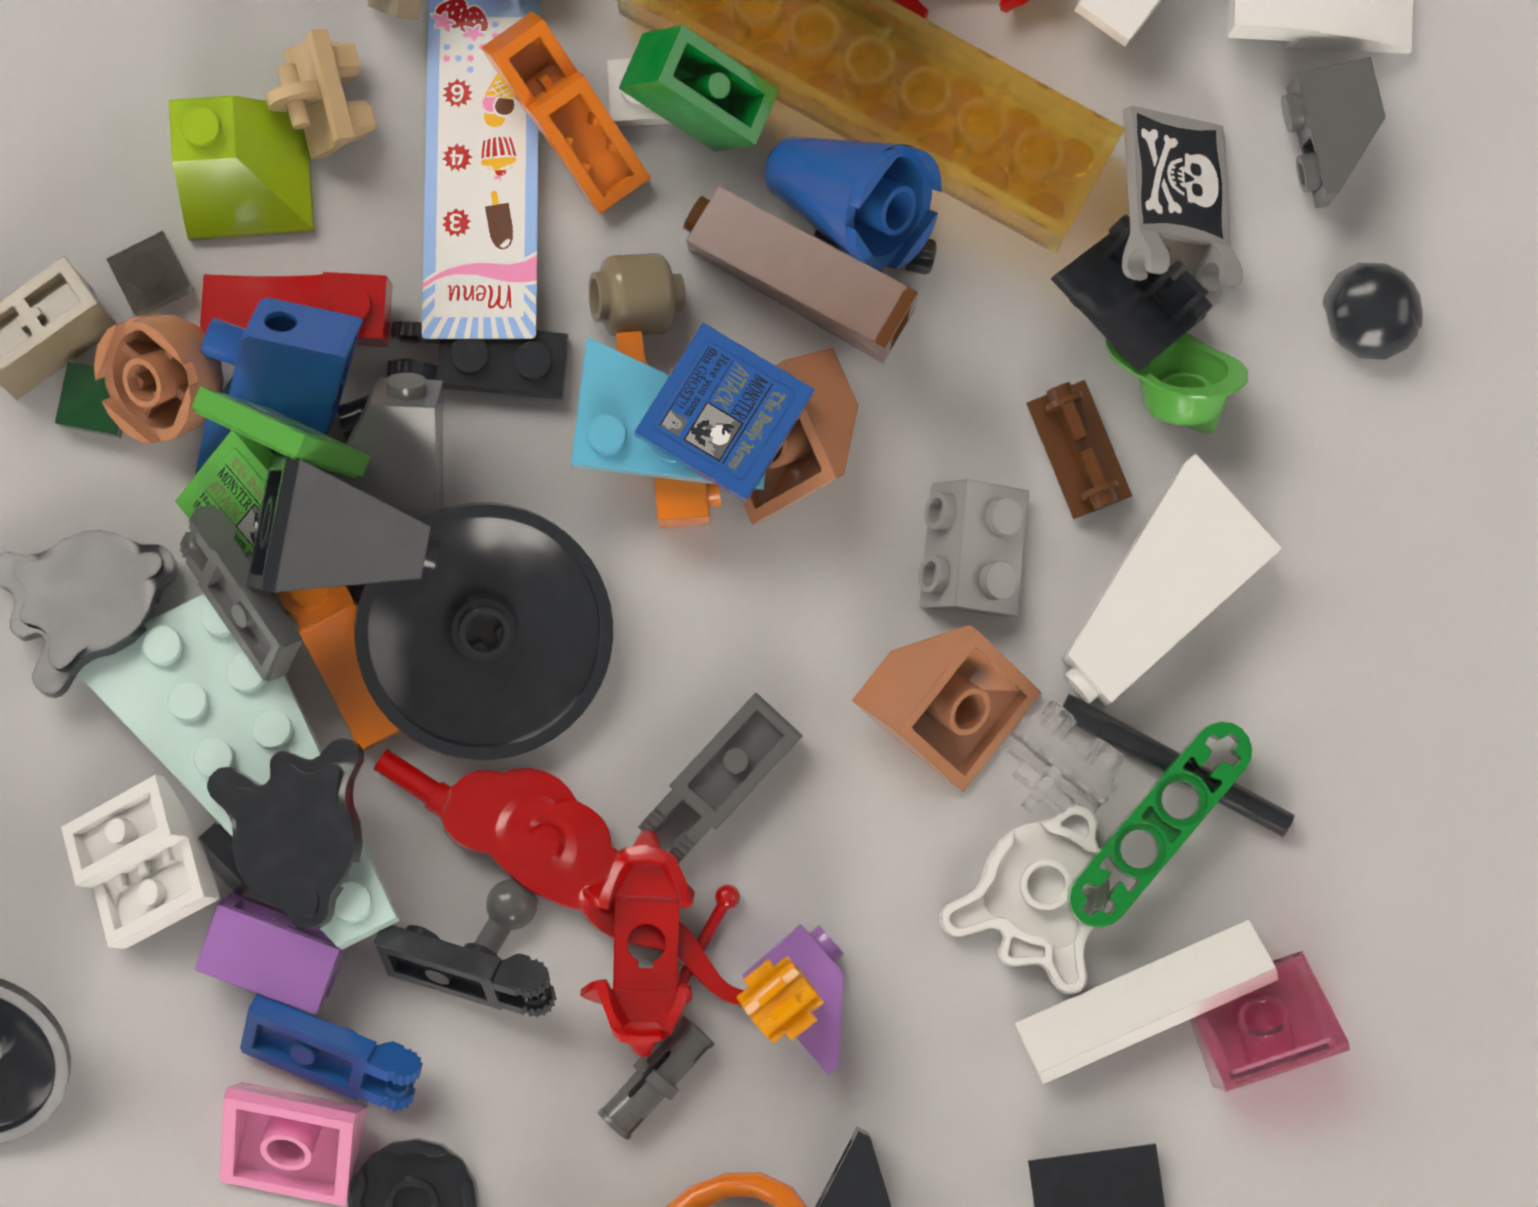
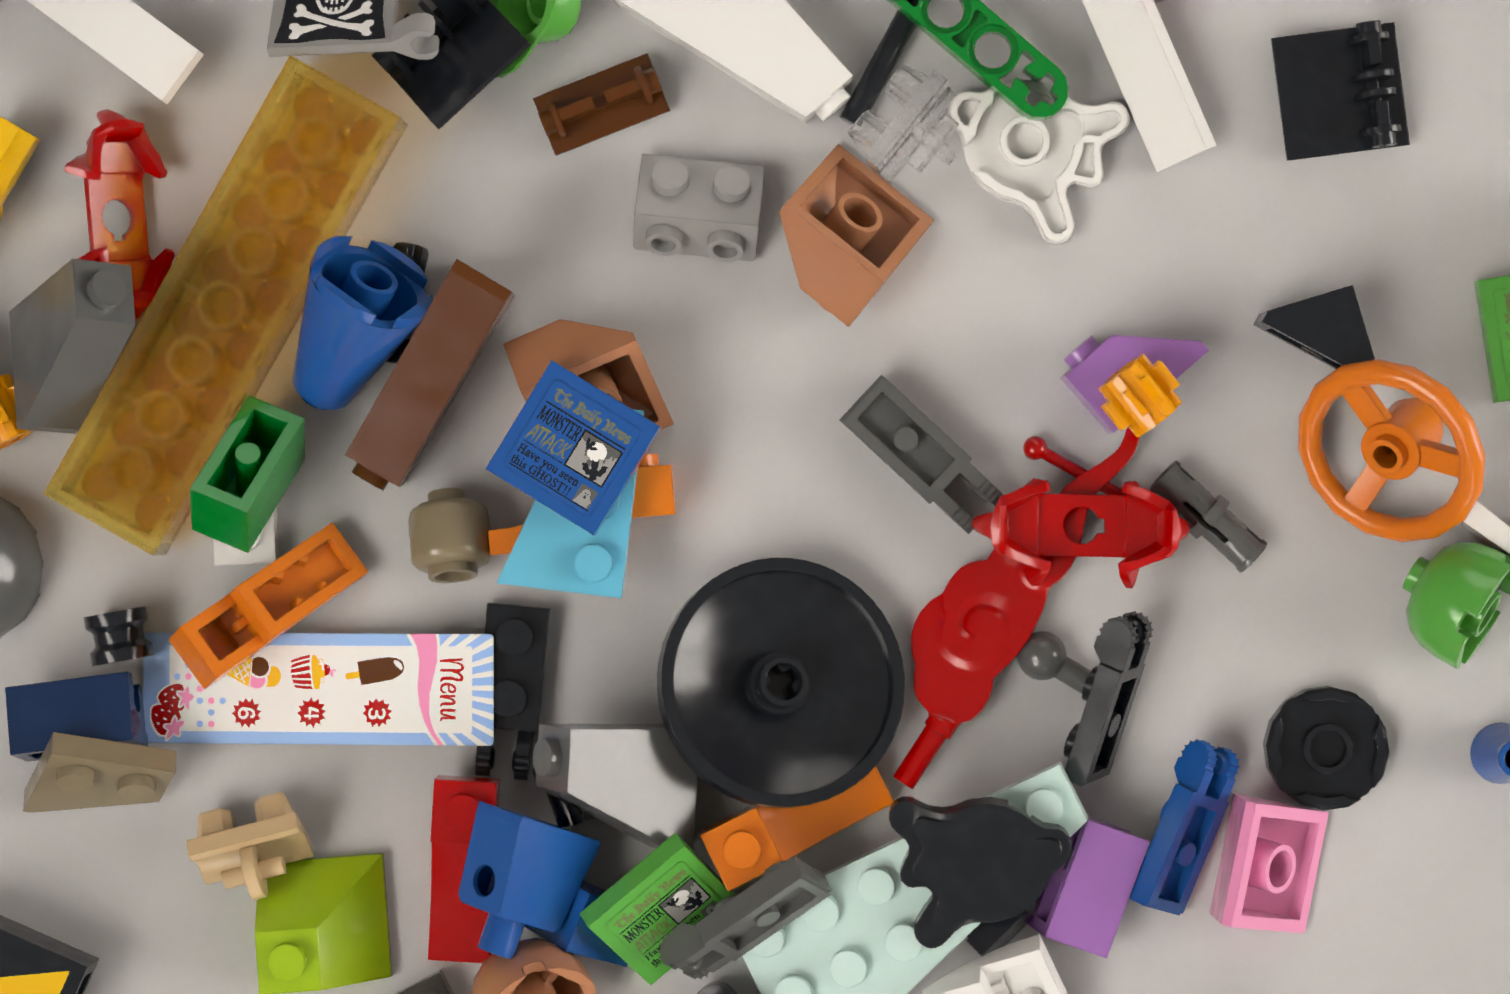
camera: 85 degrees left, 5 degrees up
(280, 432) = (597, 878): bright green tile -> none
(332, 534) = (698, 829): black slope -> none

